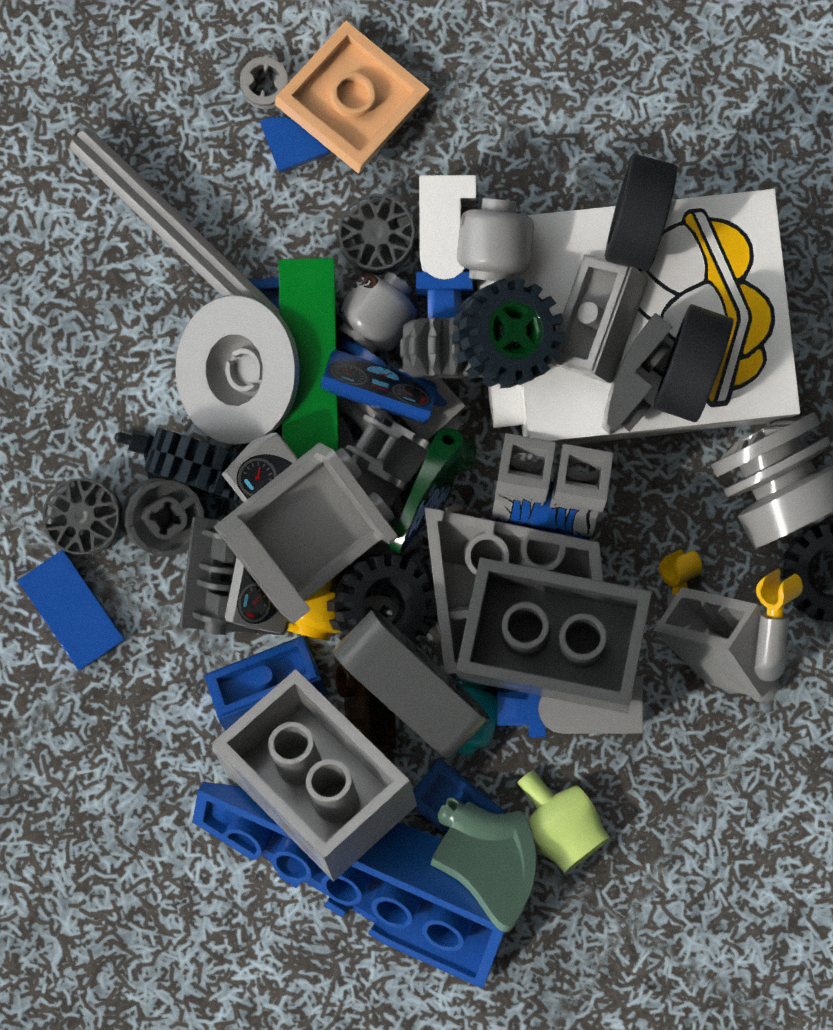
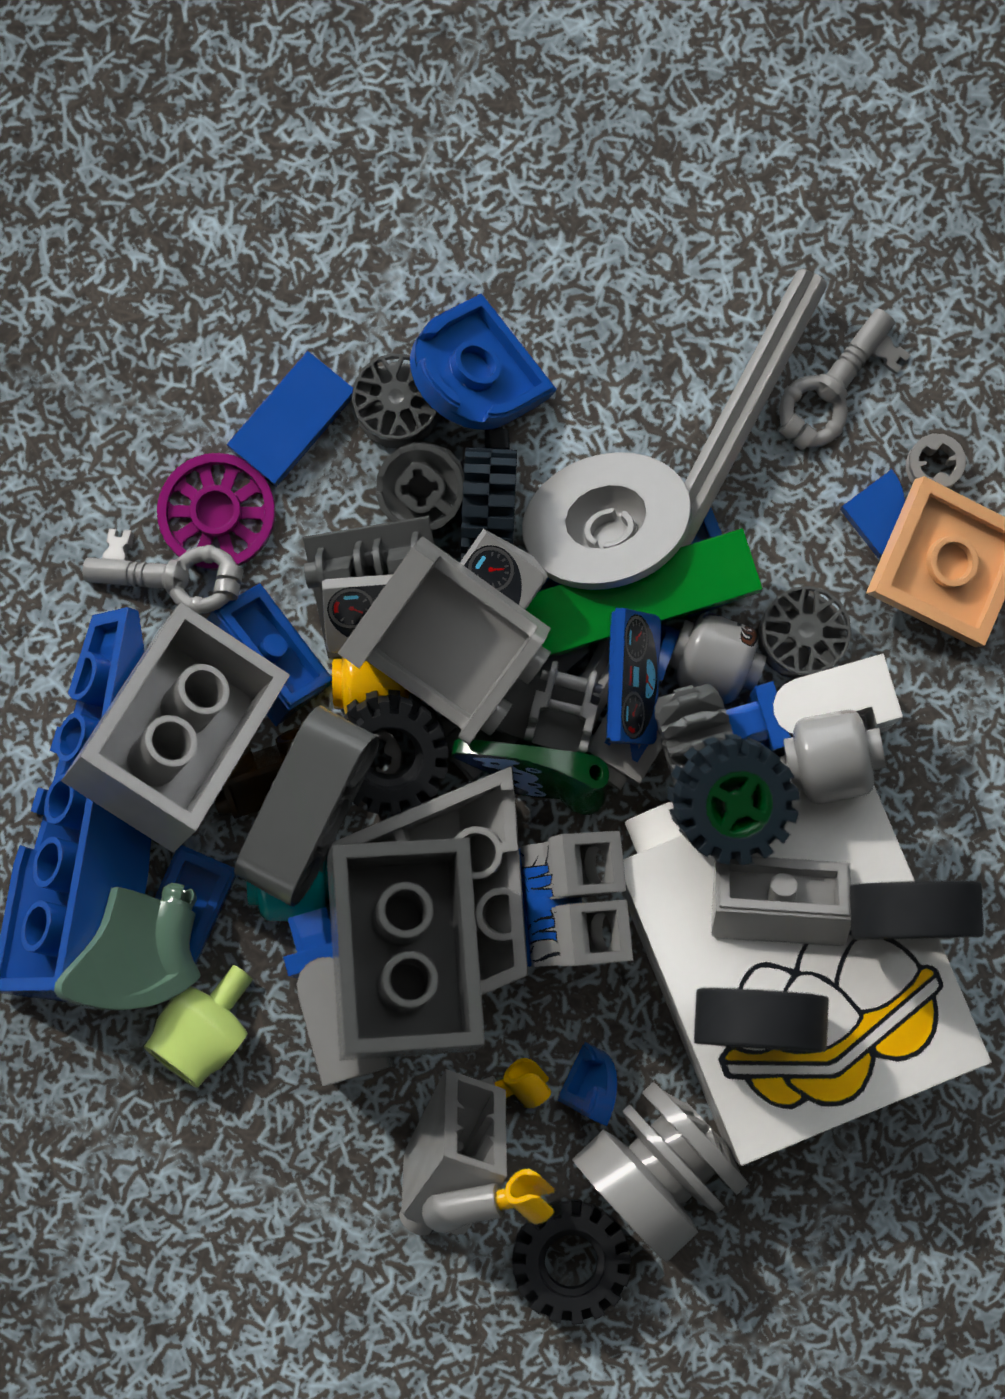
camera: 75 degrees right, 5 degrees down
(74, 442) = (476, 368): none -> blue tile
(132, 695) = (216, 508): none -> magenta wheel
(174, 149) = (831, 387): none -> light grey piece
(179, 745) = (173, 577): none -> light grey piece
(626, 396) = (708, 956): dark grey slope -> none
(697, 516) = (591, 1085): none -> blue tile

